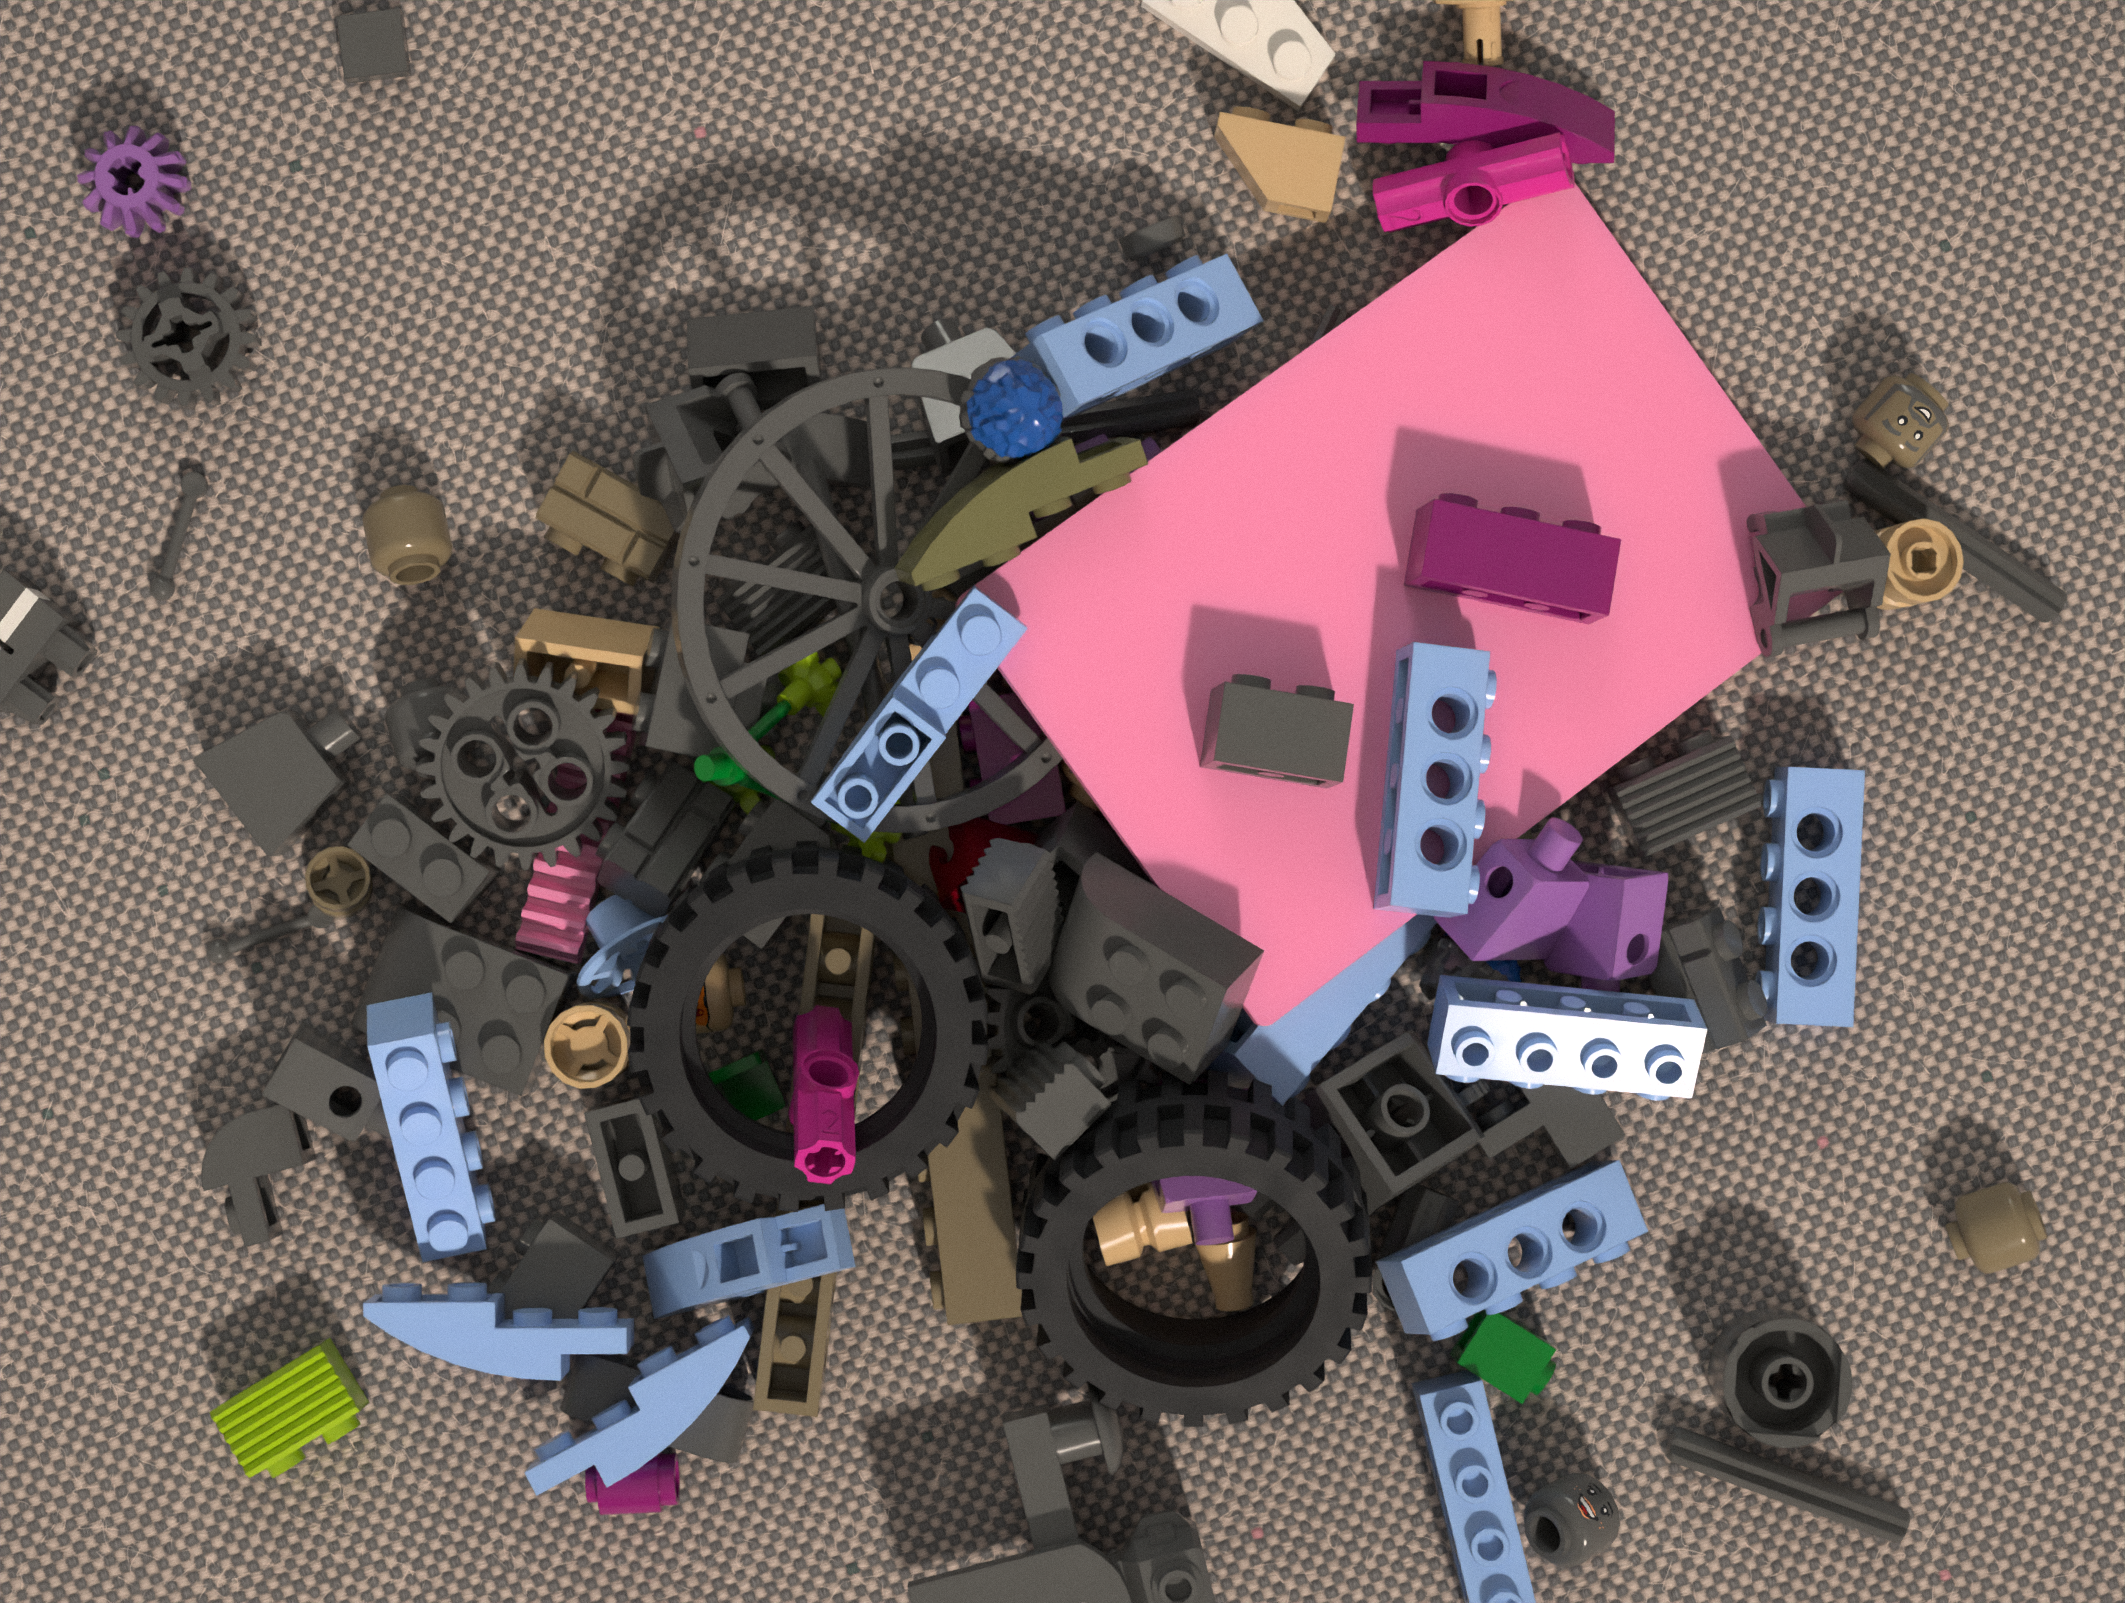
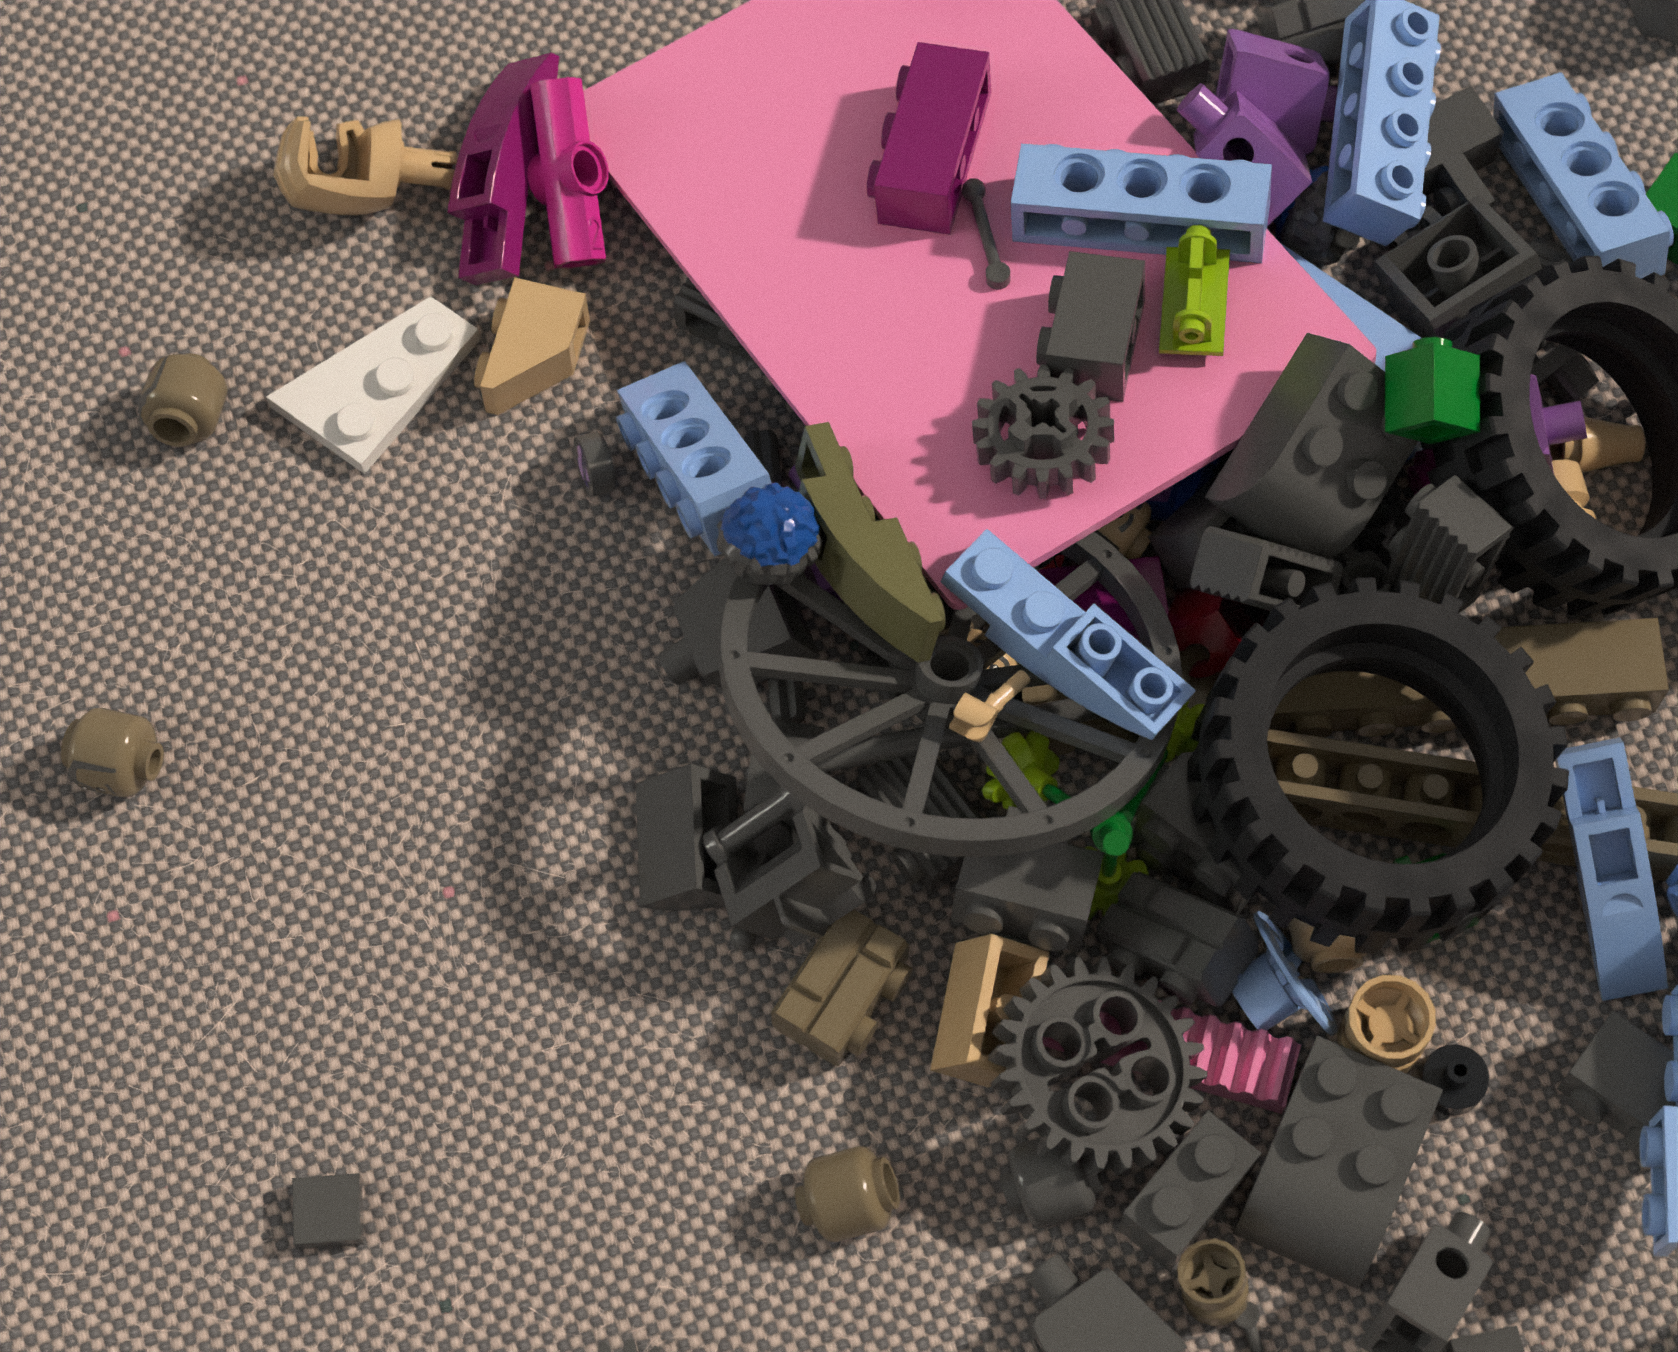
camera: 90 degrees left, 20 degrees down
(427, 1127) = (1477, 1176): light blue brick -> none
(567, 1101) = (1459, 1092): none -> black tile
(634, 1167) = (1511, 987): dark grey brick -> none
(823, 1095) = (1449, 747): dark pink piece -> none
(831, 626) = (975, 718): none -> tan hand
(1127, 666) = (1043, 431): none -> dark grey gear
(1187, 1076) = (1432, 392): none -> green brick
(1318, 838) = (1194, 295): none -> lime hinge
(1351, 634) = (997, 272): none -> dark grey hinge

